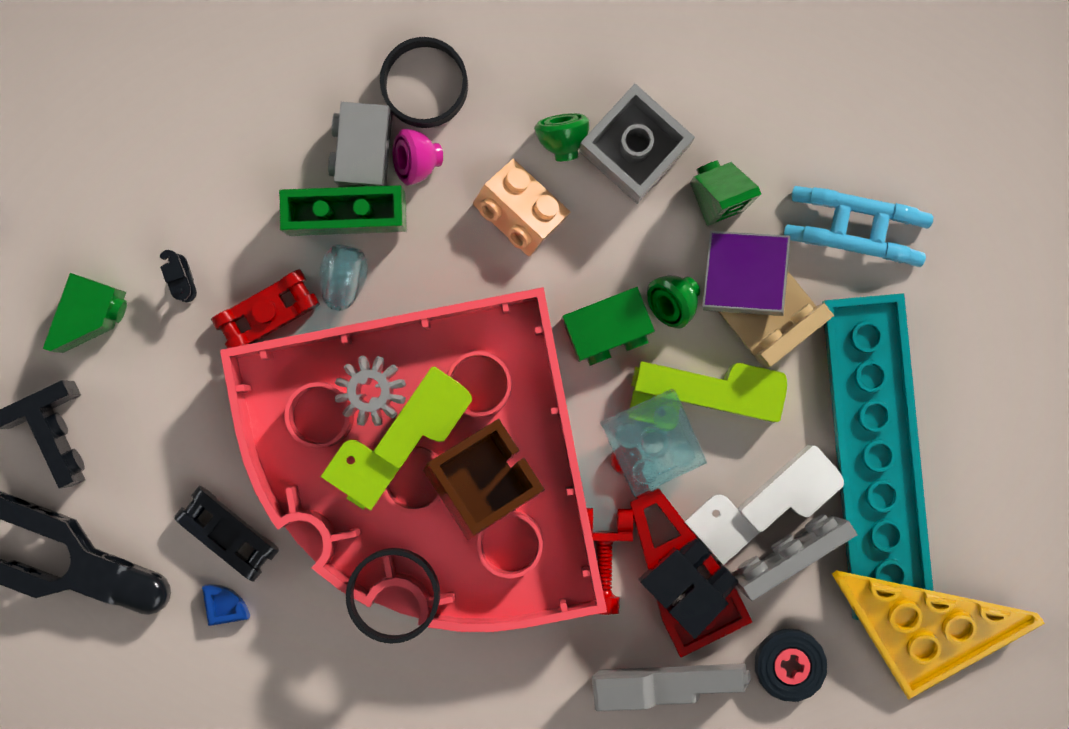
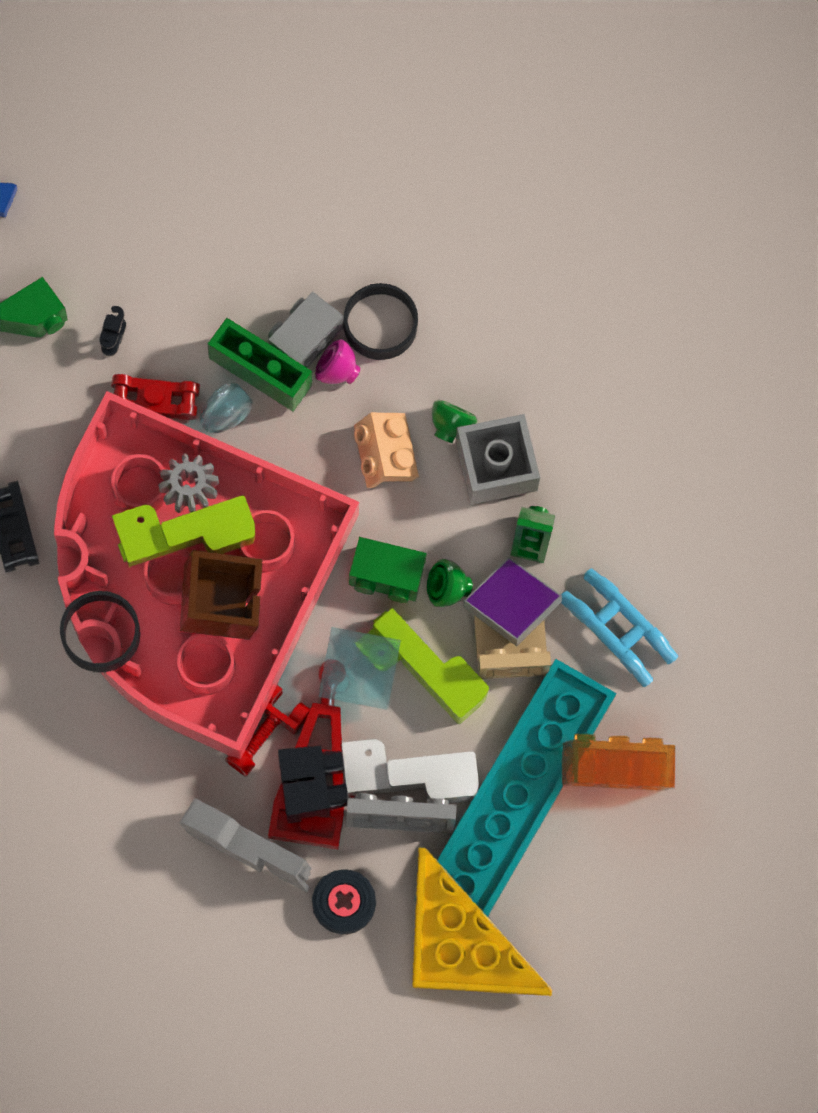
camera: 30 degrees right, 15 degrees down
(956, 362) = (618, 763): none -> clear orange brick

